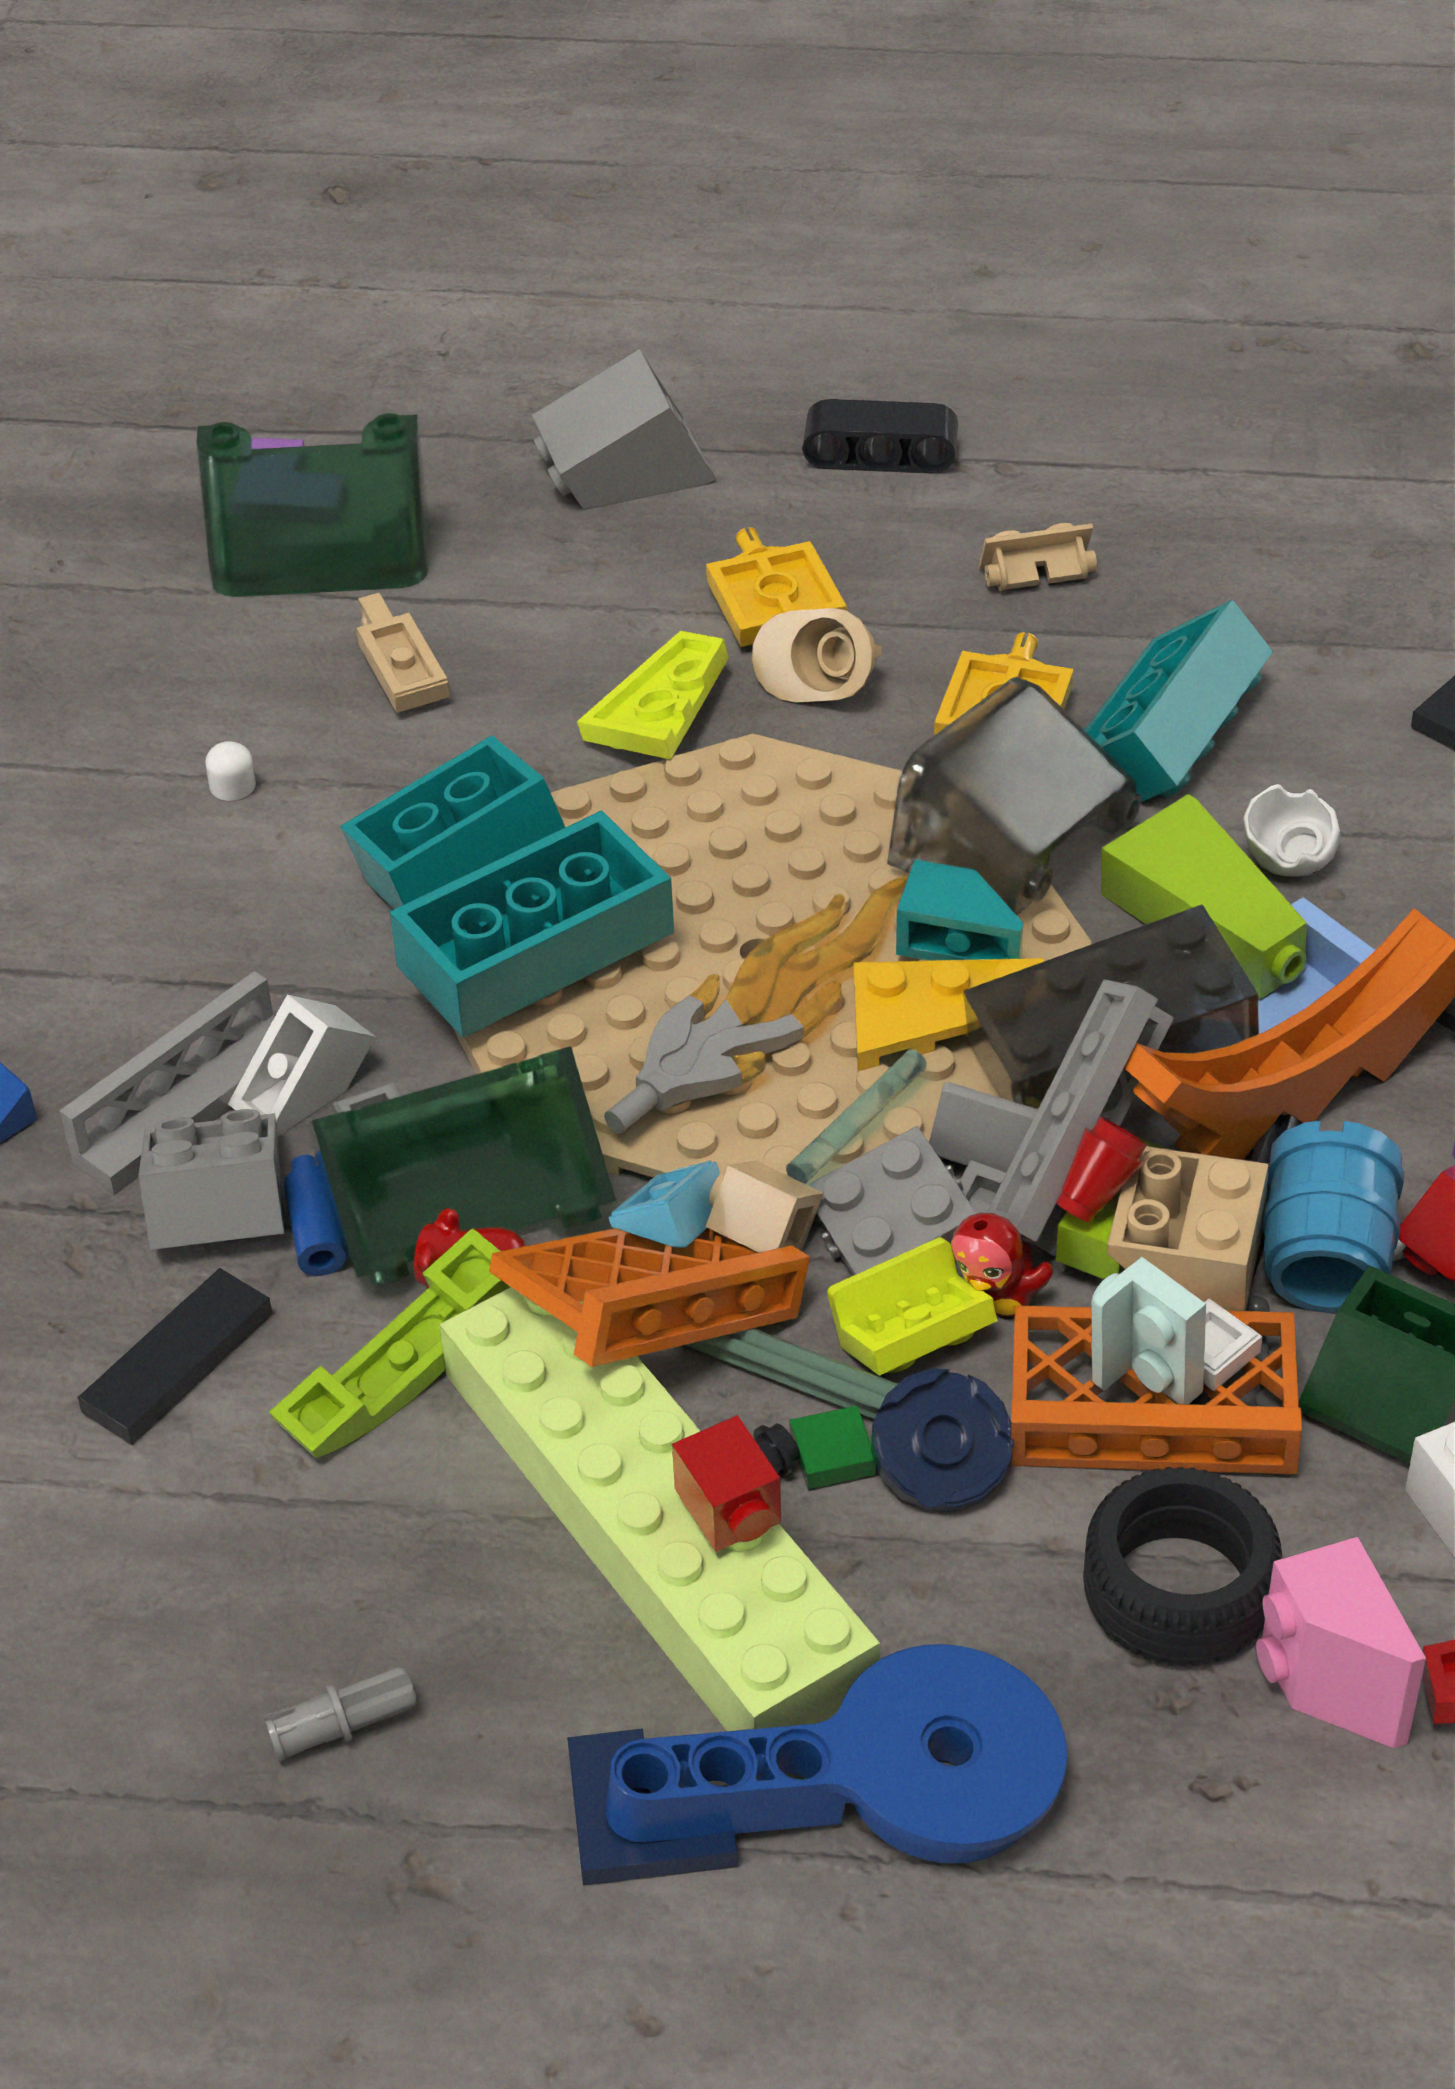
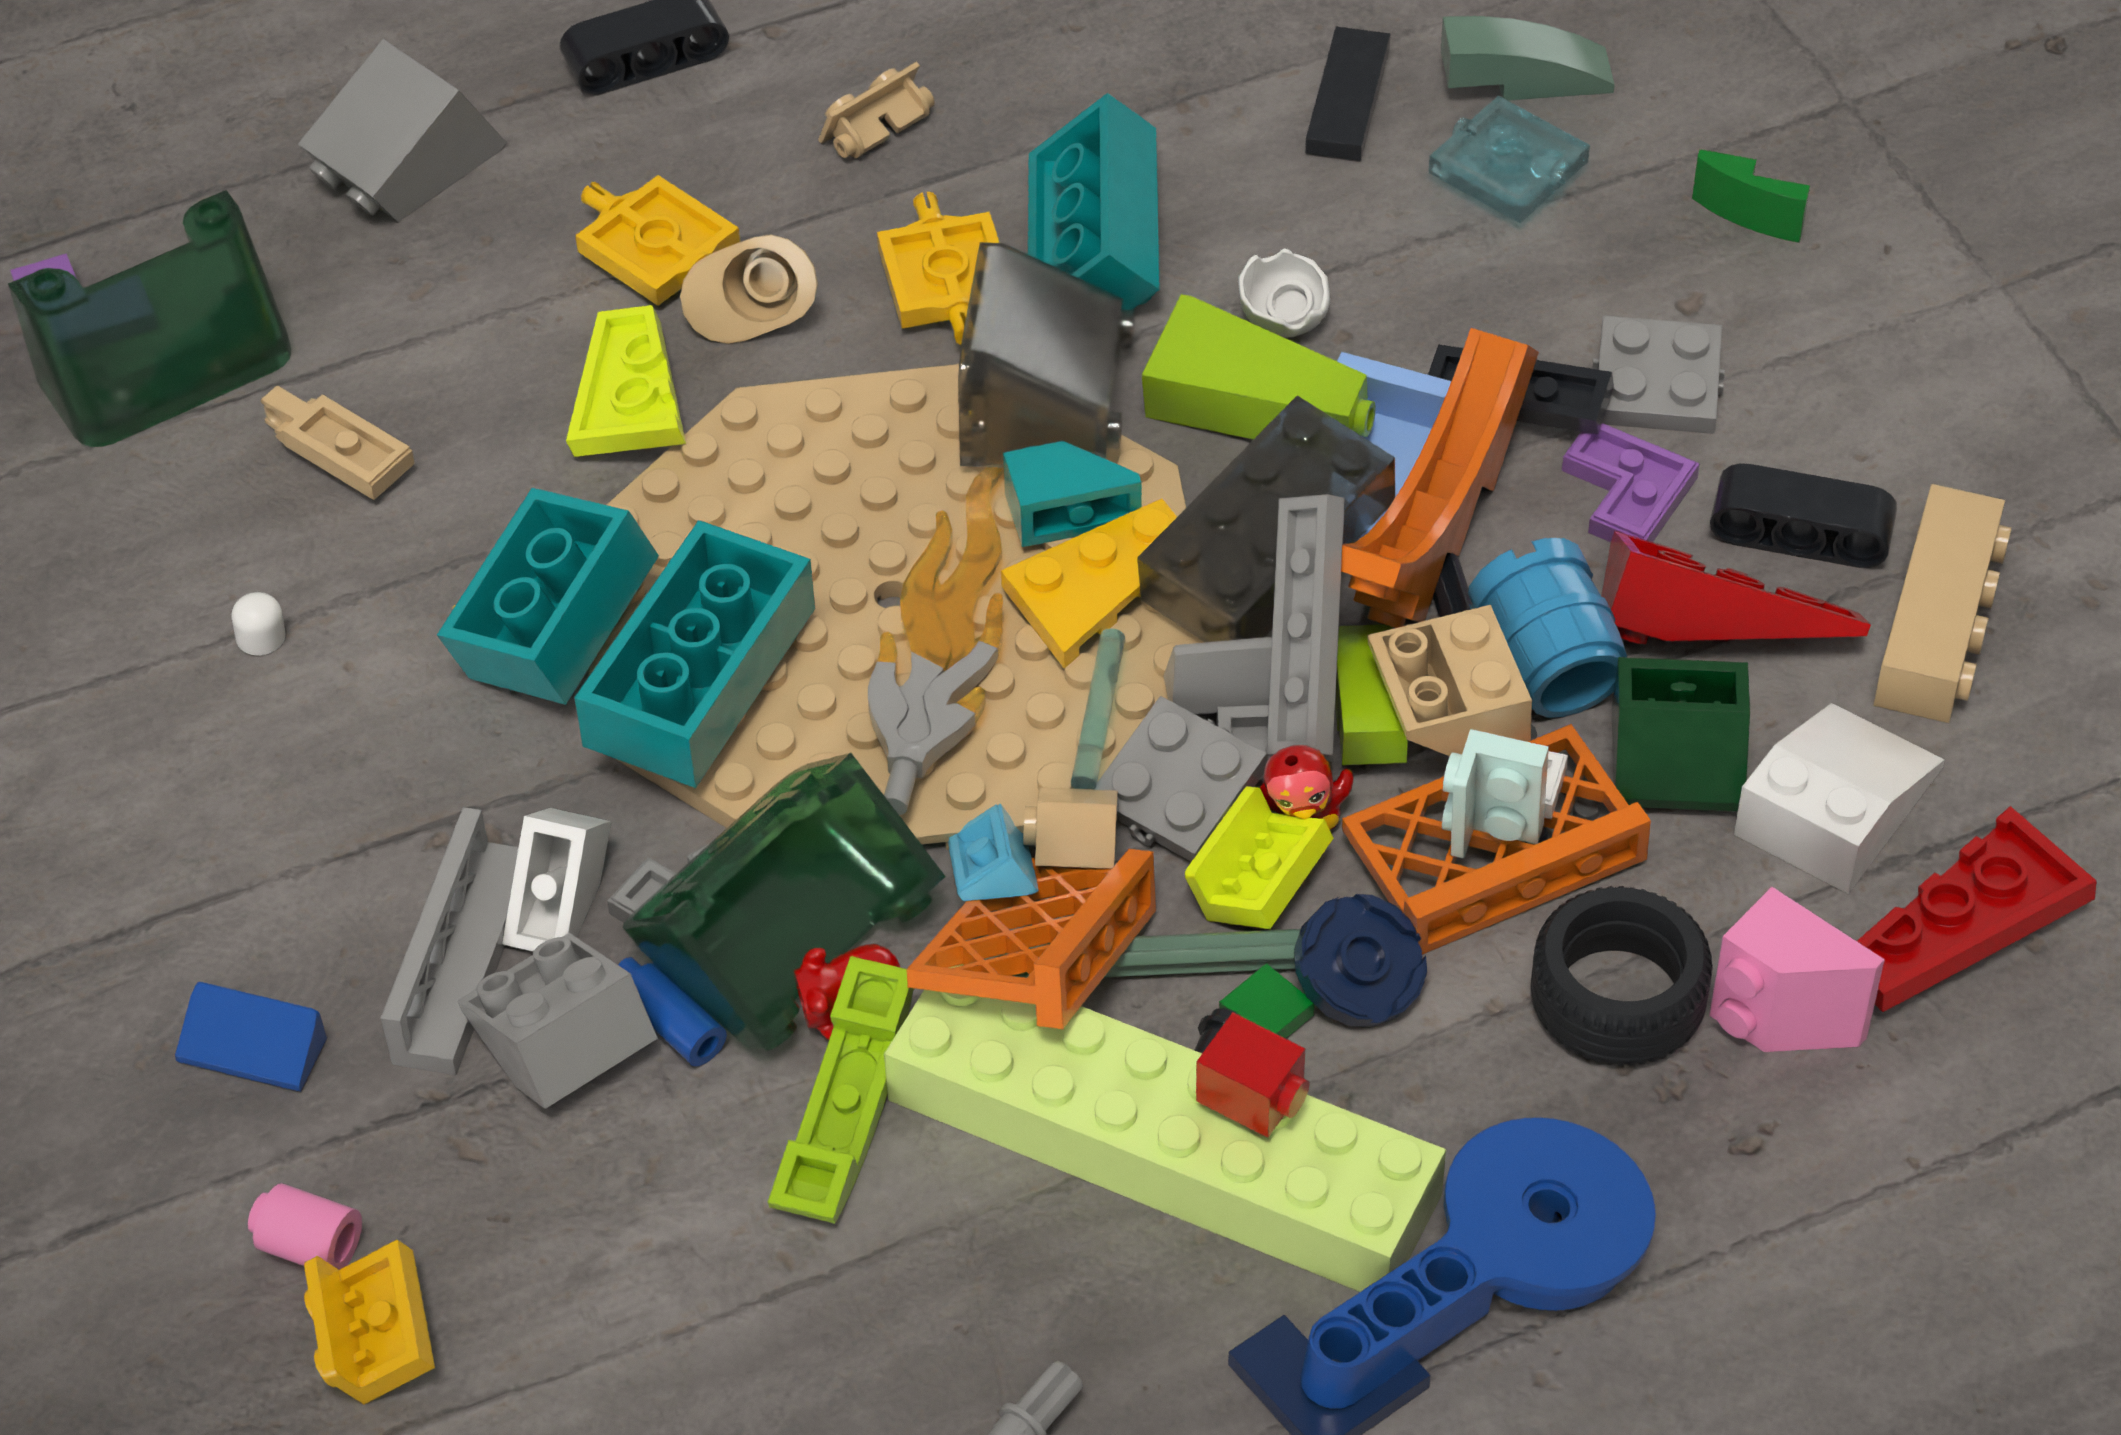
camera: 30 degrees left, 5 degrees up
(175, 1355) = (636, 1193): black tile -> none
(1100, 1168) = (1362, 668): red cone -> none

